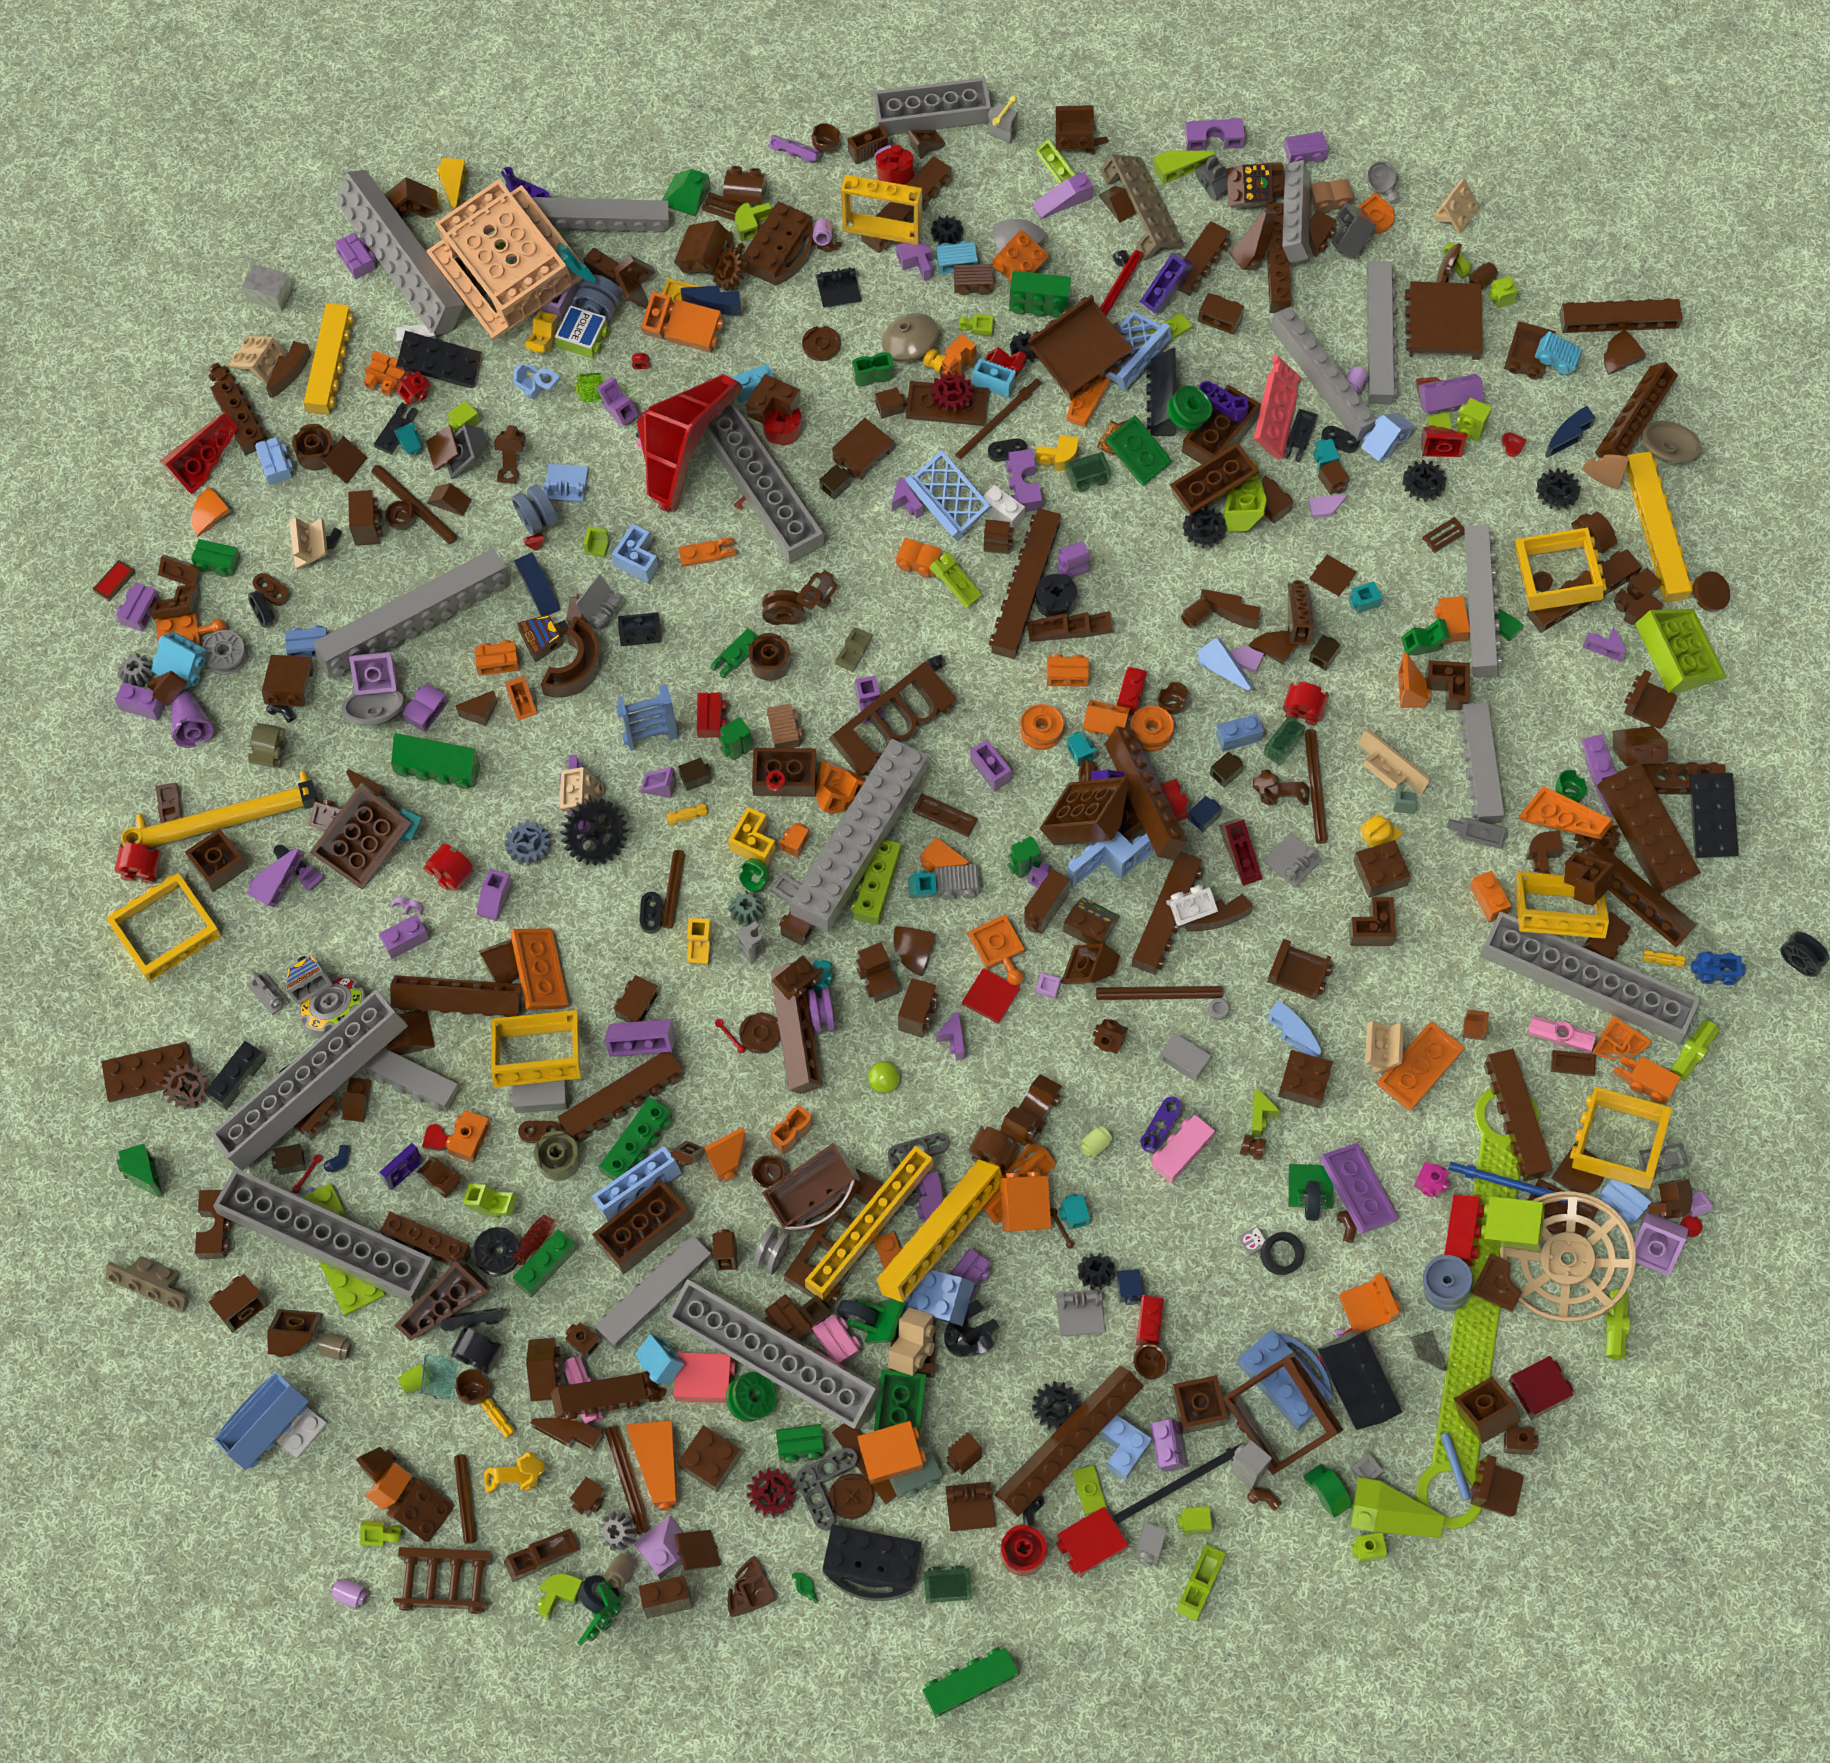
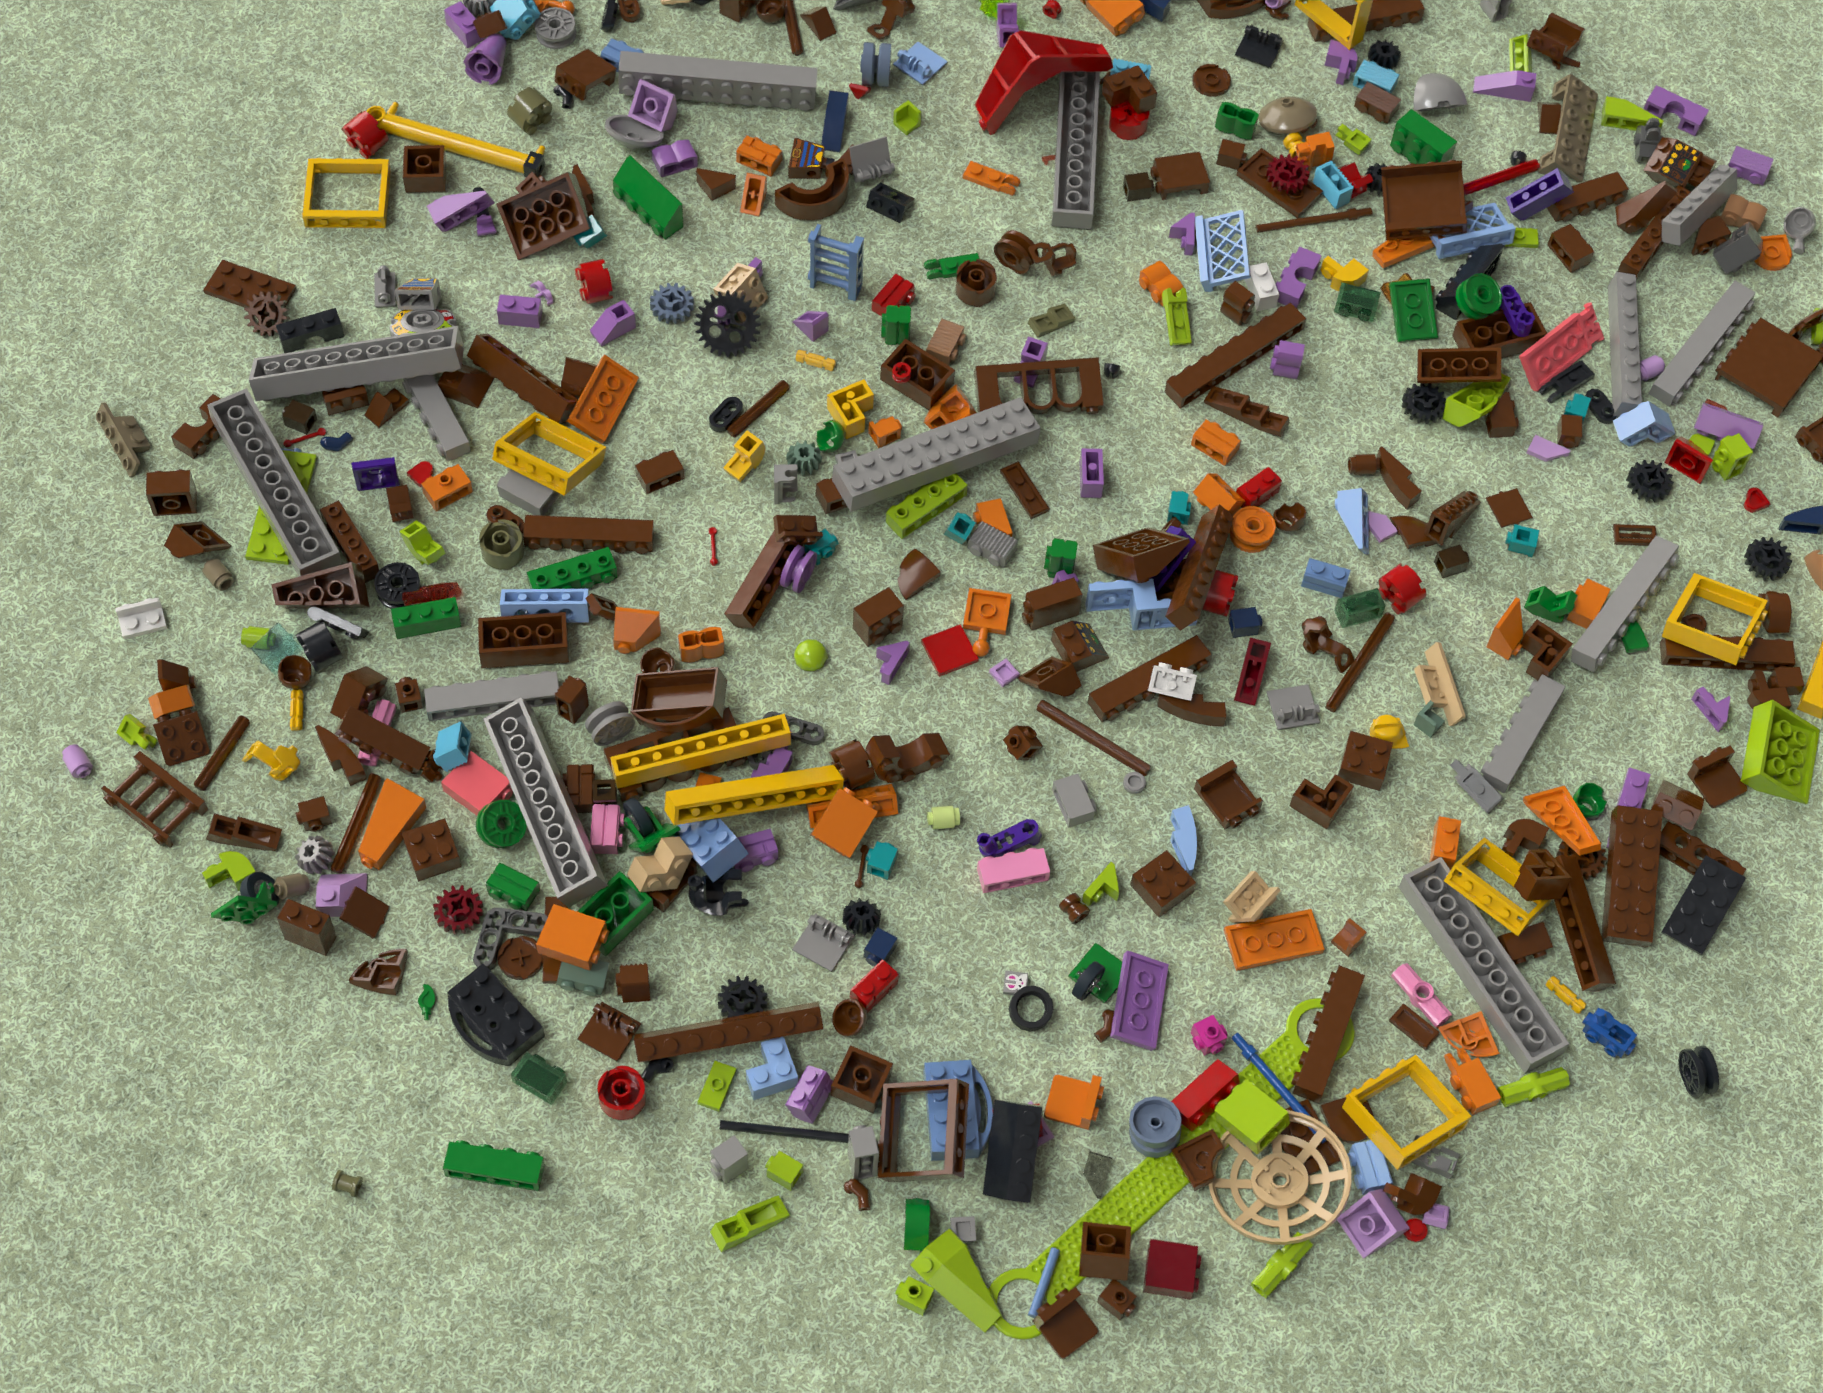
camera: 30 degrees right, 5 degrees down
(140, 1168) = (184, 350): green slope -> none
(168, 802) = (427, 108): reddish brown slope -> none
(260, 1421) = (115, 587): medium blue piece -> none
(632, 554) = (929, 142): light blue brick -> none
(640, 1037) = (638, 498): medium lavender brick -> none
(694, 773) = (845, 333): dark brown brick -> none
(758, 1039) = (737, 565): reddish brown tile -> none
(875, 968) = (868, 568): reddish brown brick -> none
(1005, 446) = (1291, 247): black plate -> none
(1019, 255) = (1430, 102): orange bracket -> none
(1041, 715) = (1163, 461): orange wheel -> none
(1056, 595) = (1253, 378): black brick -> none
(1091, 1542) = (683, 1125): red panel -> none
(1226, 769) = (1291, 599): dark brown brick -> none

